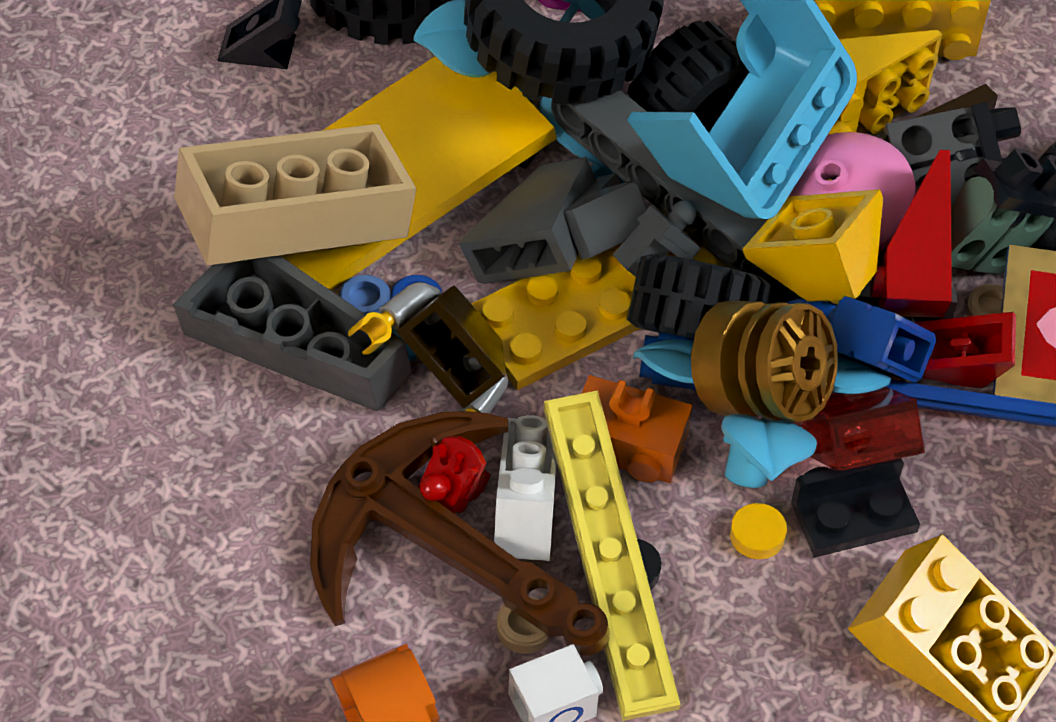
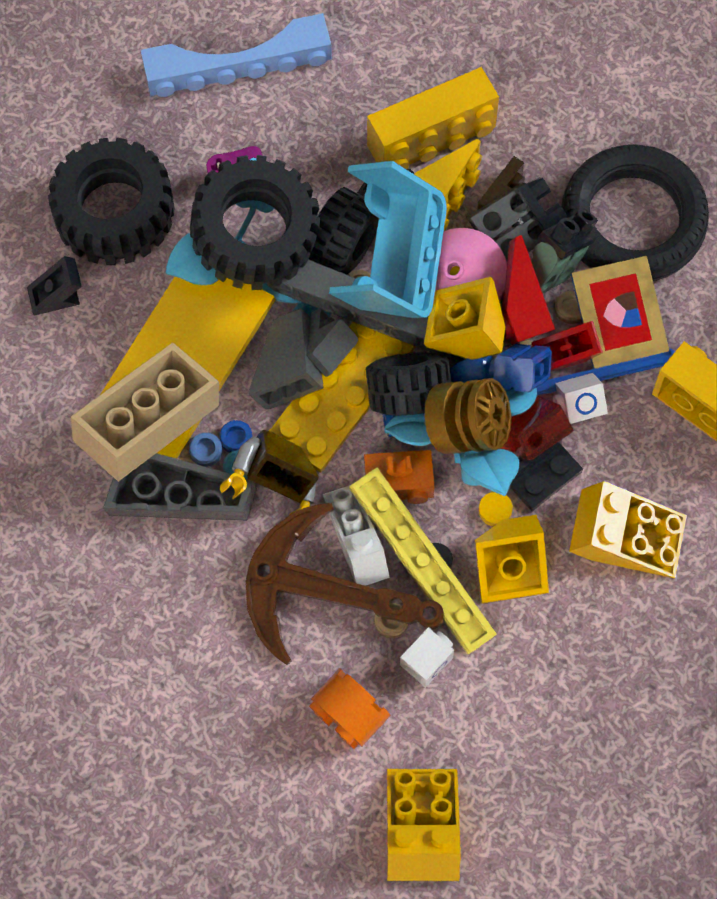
camera: 20 degrees left, 15 degrees up
(454, 474) = (315, 550): red piece -> none
(659, 236) = (366, 347): dark grey piece -> none
(748, 607) = (512, 560): none -> yellow slope
(957, 423) = (581, 398): none -> white brick

